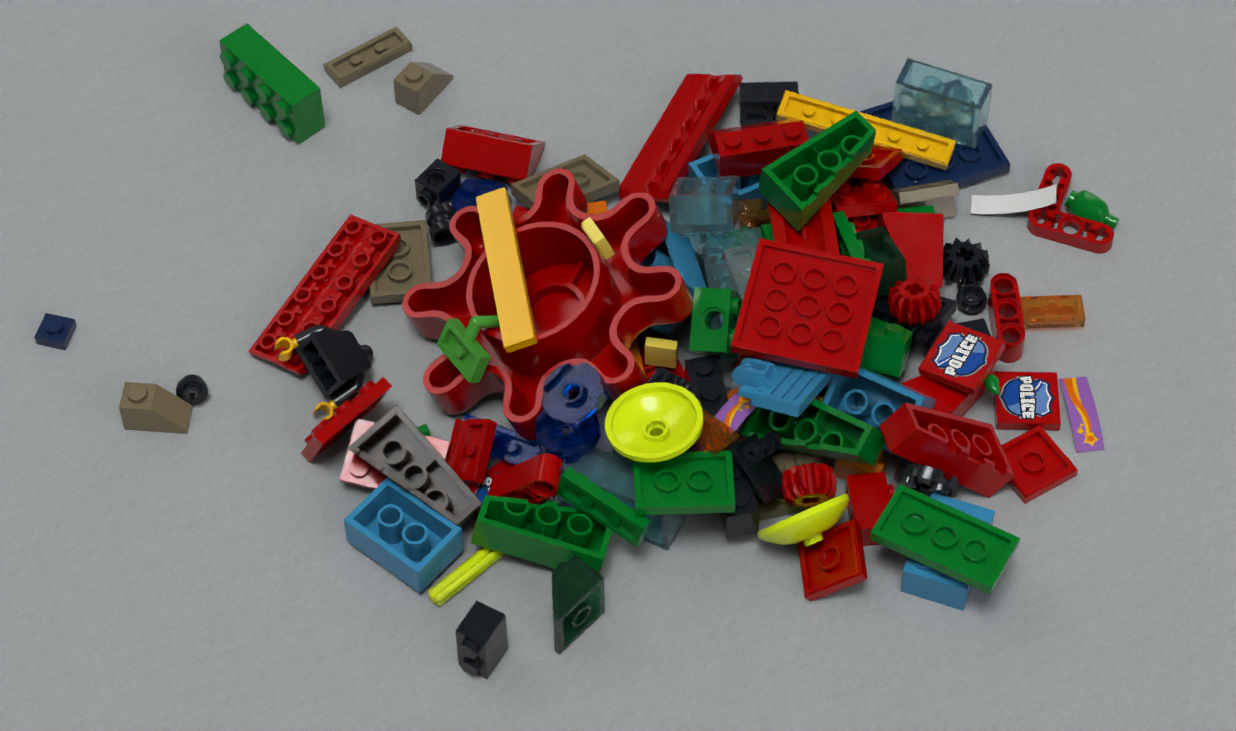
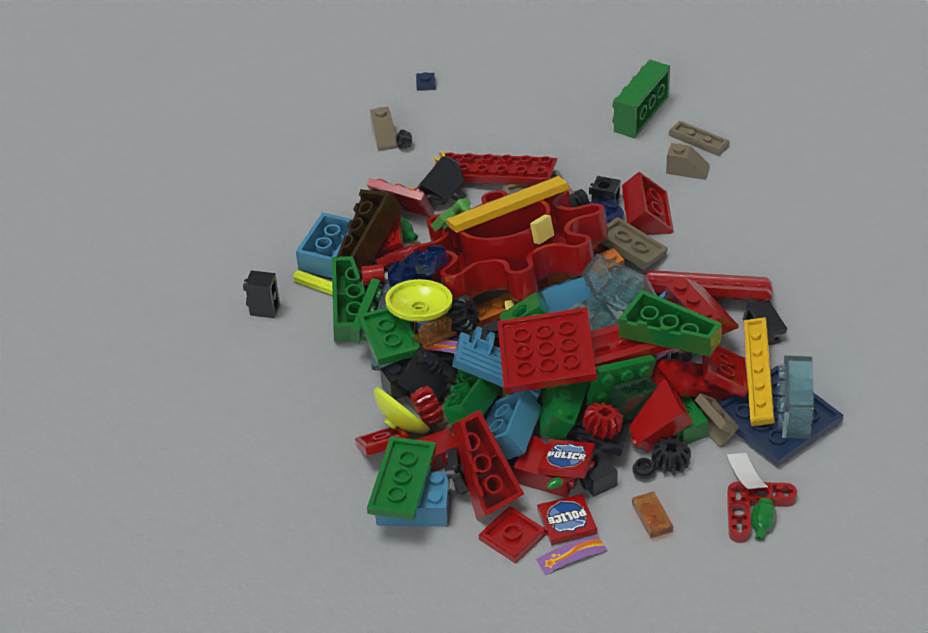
camera: 75 degrees right, 10 degrees down
(576, 600) = (300, 325): clear green slope -> none
(1006, 315) = (619, 491): red beam -> none

